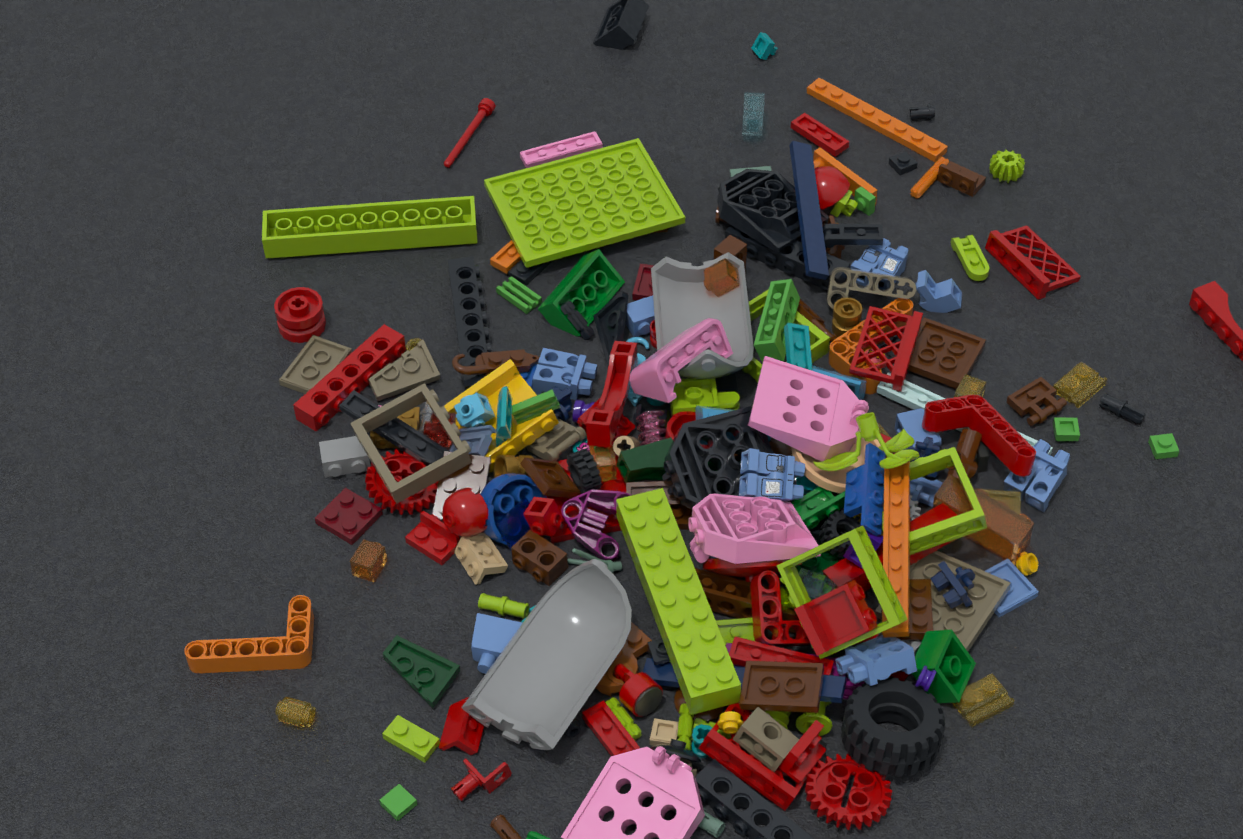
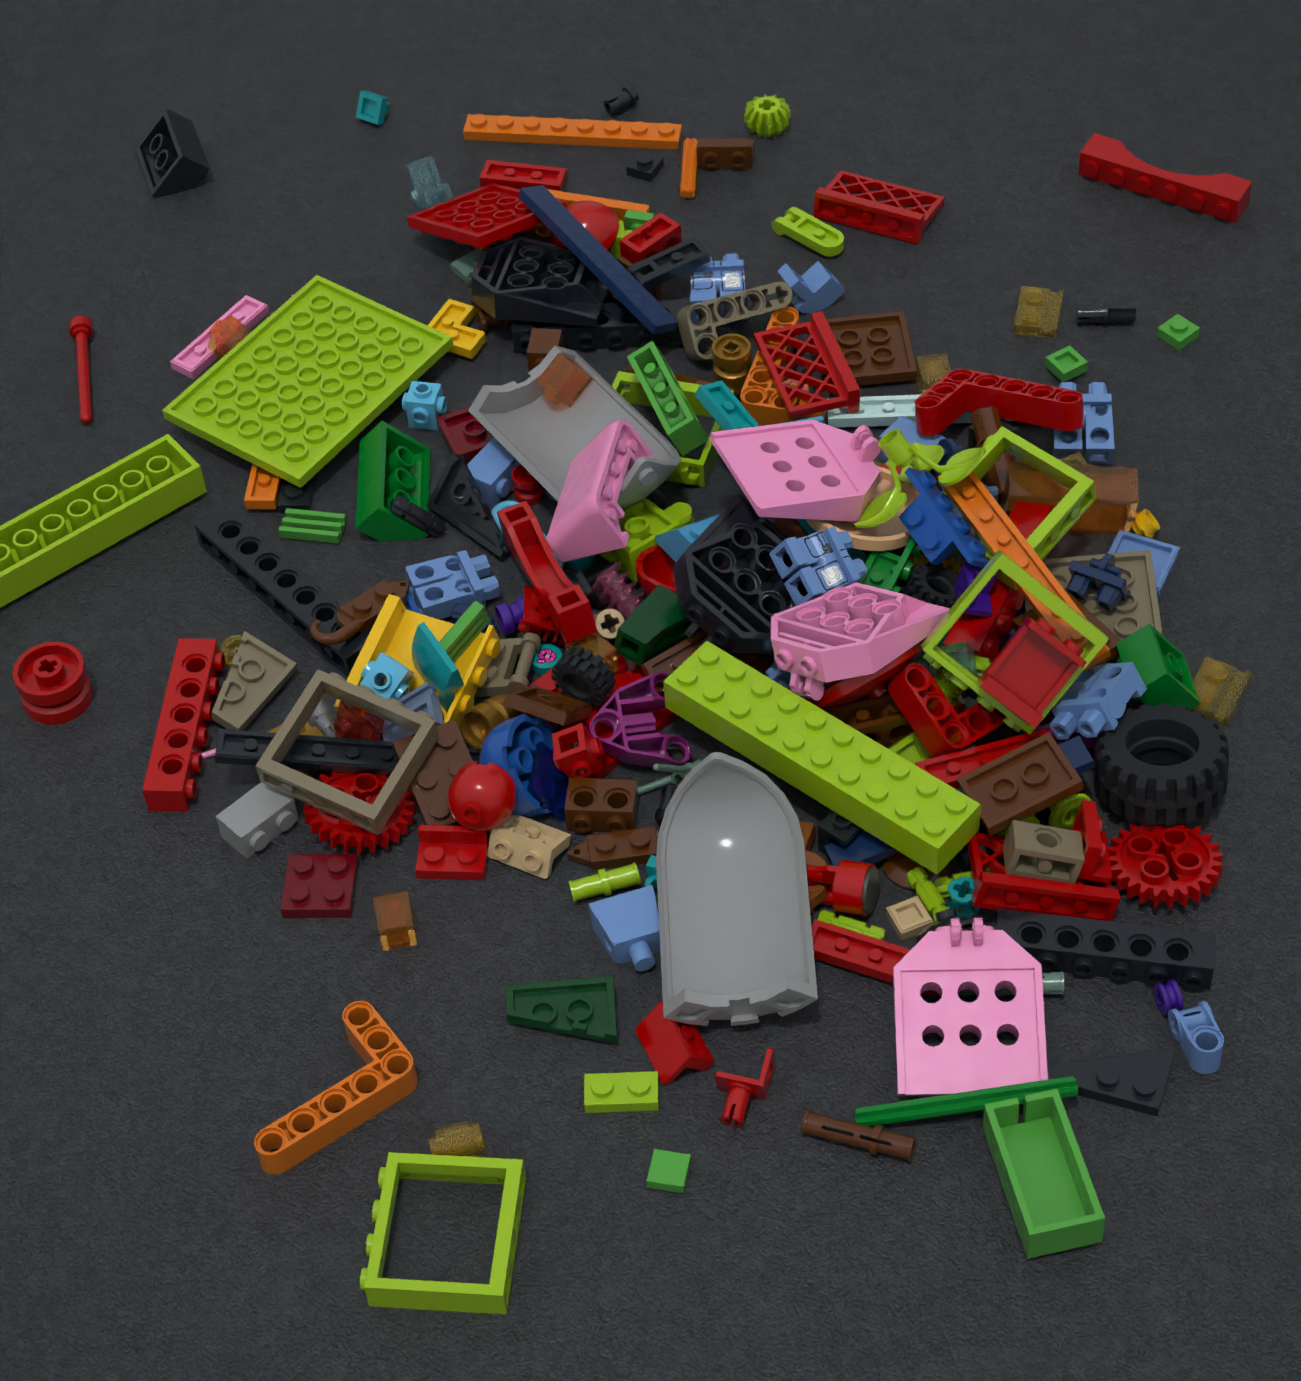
camera: 30 degrees left, 0 degrees up
(272, 788) = (439, 1295): none -> lime window
(313, 364) = (120, 735): dark tan tile -> none
(524, 587) = (616, 848): none -> reddish brown plate
(559, 149) = (226, 335): none -> clear orange brick
(639, 251) = (424, 404): none -> medium azure brick
(697, 211) = (453, 321): none -> yellow plate
(730, 722) = (993, 855): yellow plate -> none
(763, 147) = (477, 217): none -> red plate
(859, 212) = (650, 238): none -> red brick
(925, 678) = (1164, 690): dark purple bush -> none
(1032, 396) = (1001, 349): reddish brown plate -> none

